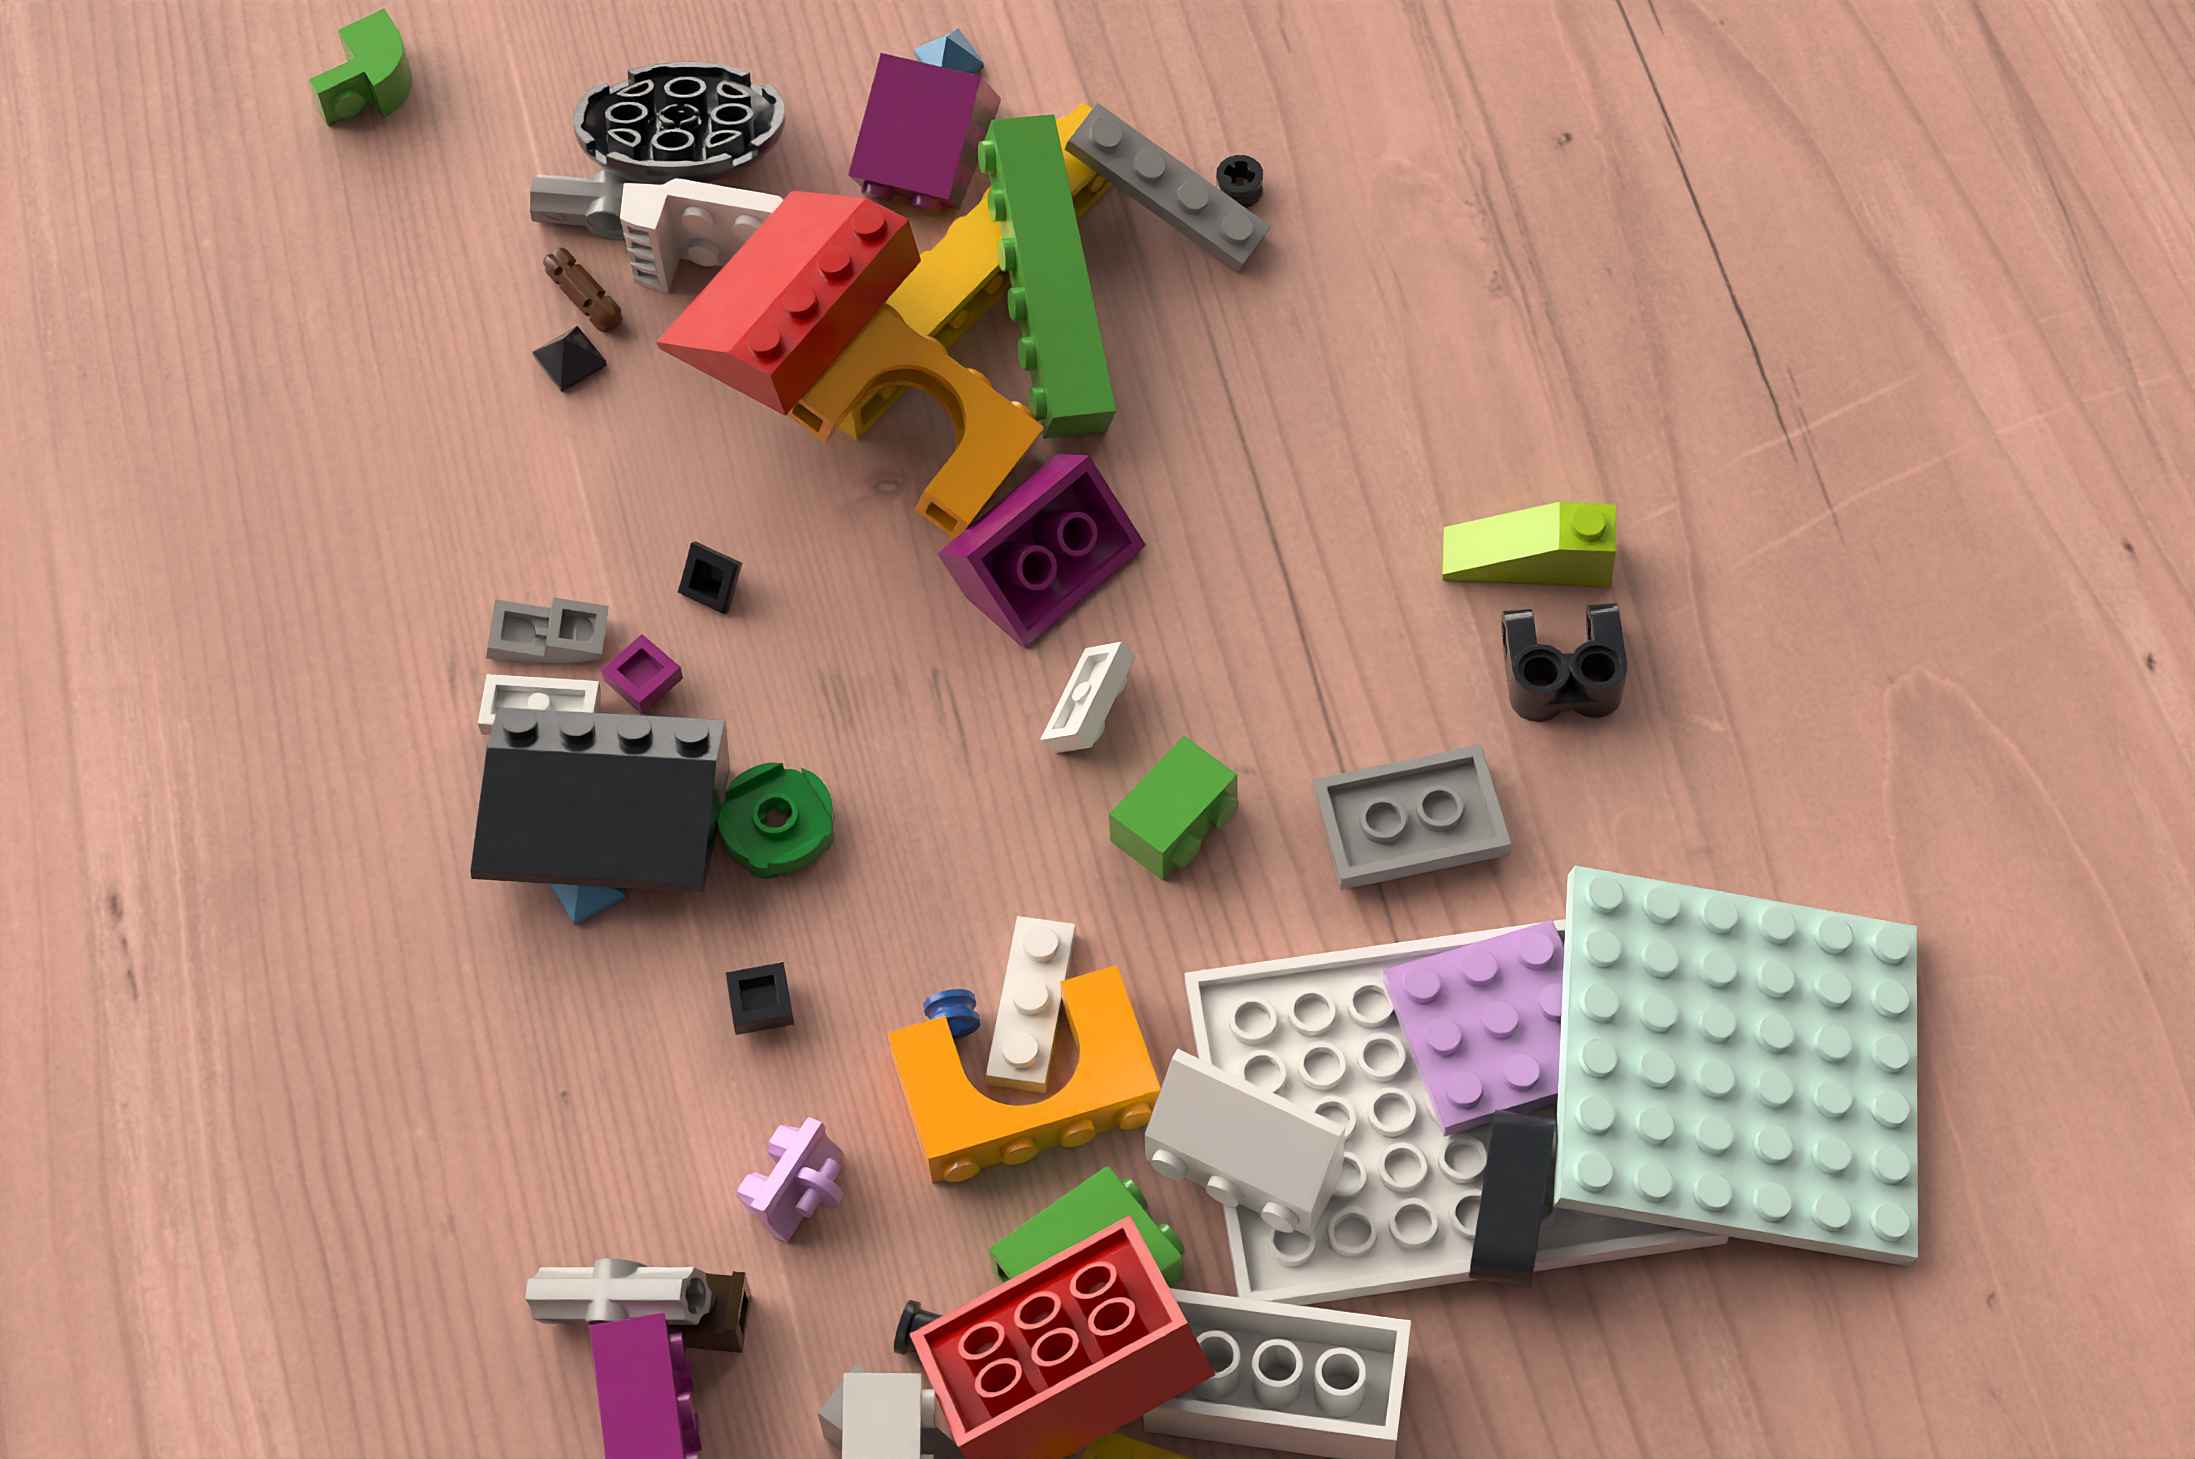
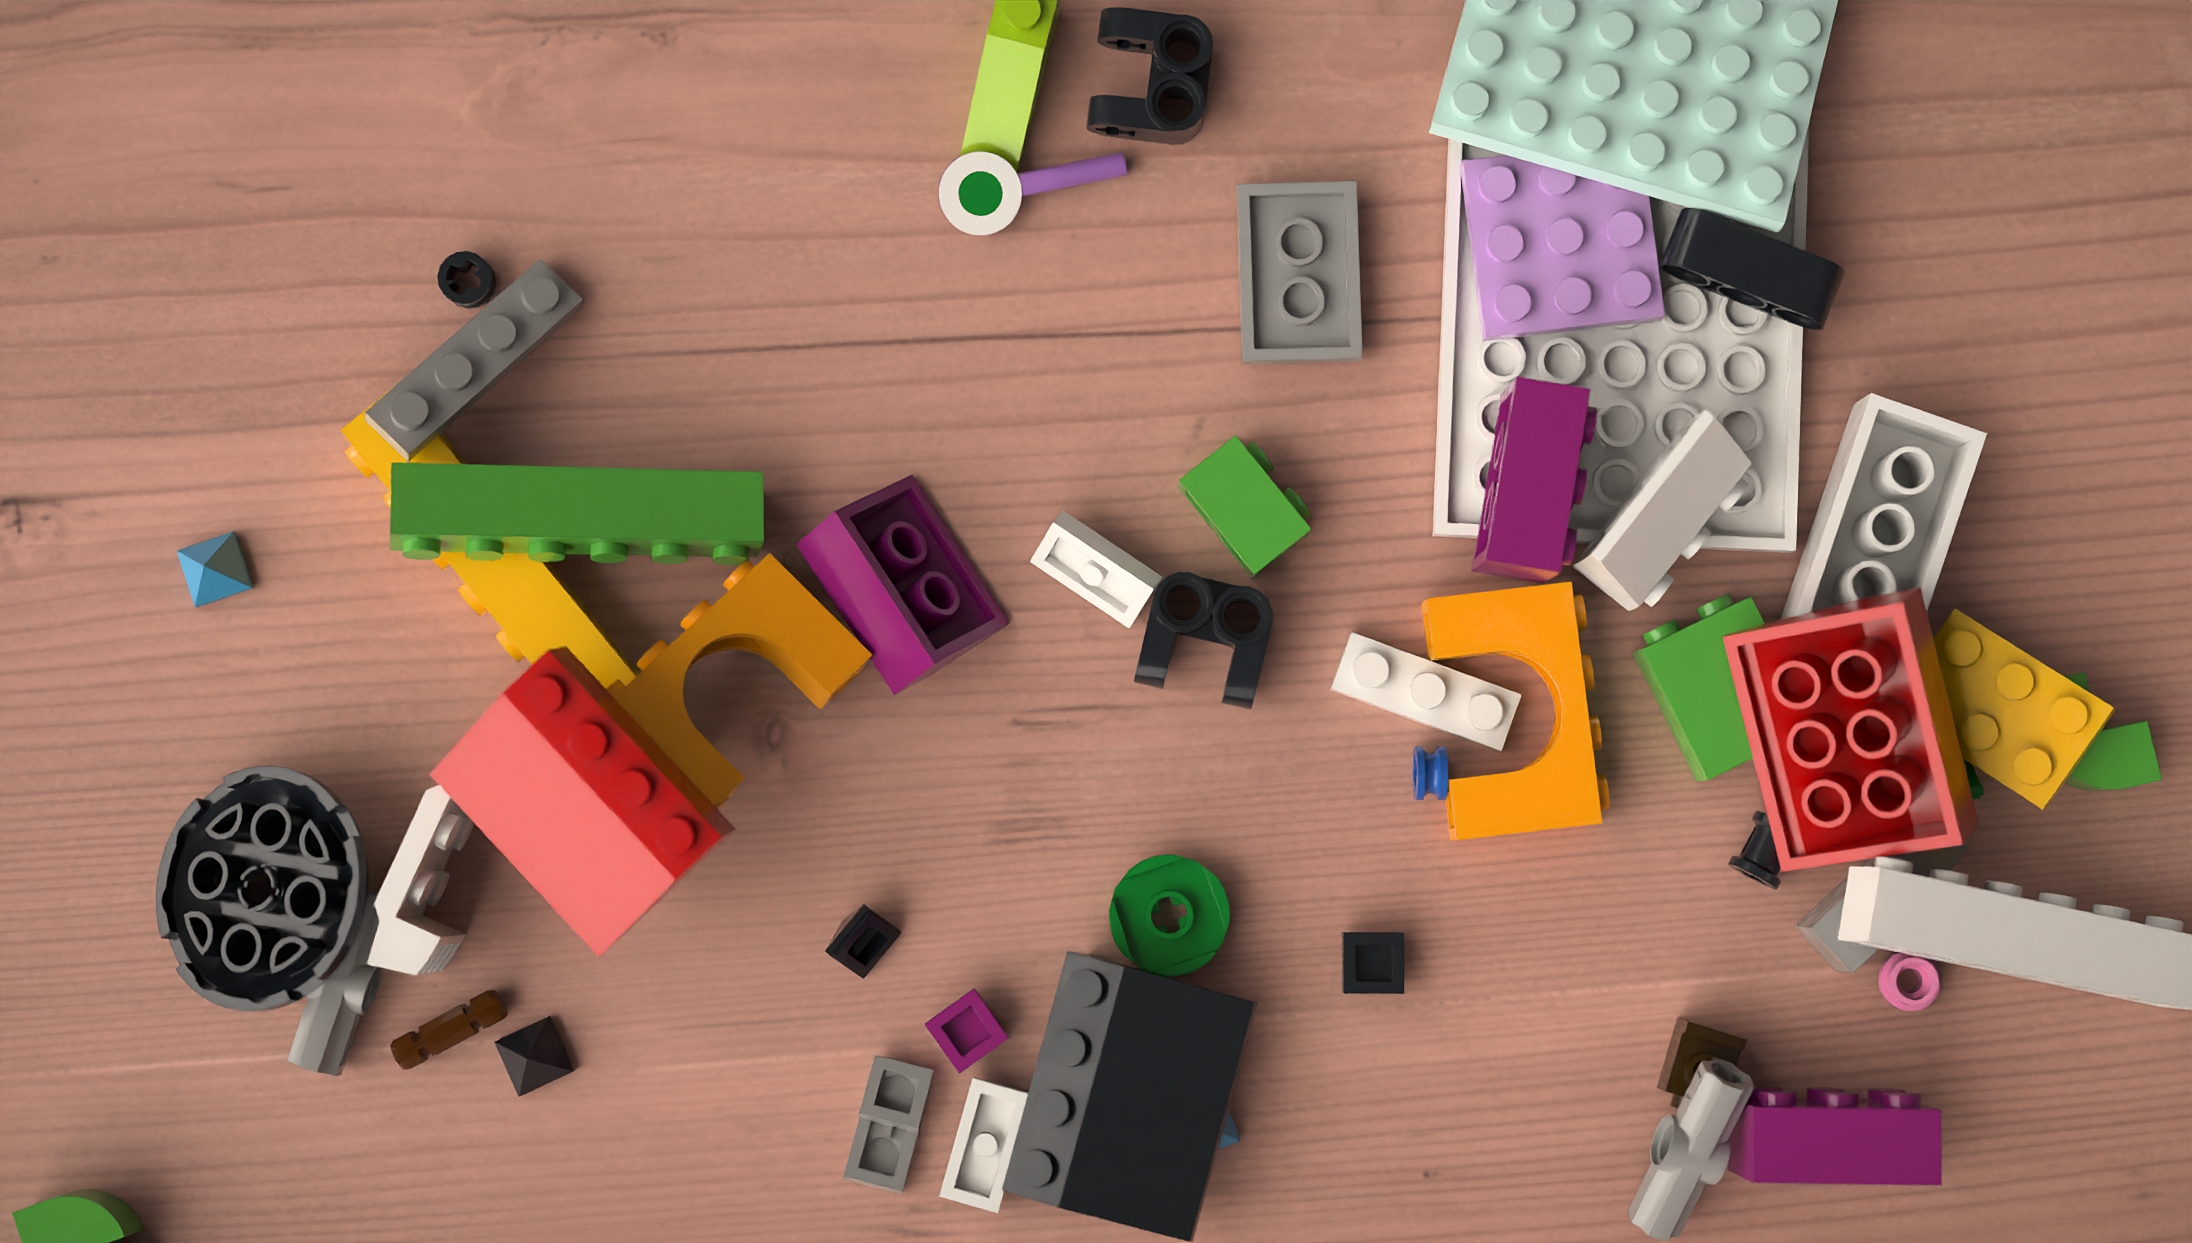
camera: 80 degrees left, 25 degrees up
(799, 1182) = (1599, 974): lavender hips -> none
(922, 133) = (335, 616): magenta slope -> none
(1040, 762) = (1207, 626): none -> black piece
(1249, 1013) = (1534, 480): none -> magenta brick
(1420, 548) = (984, 191): none -> piece

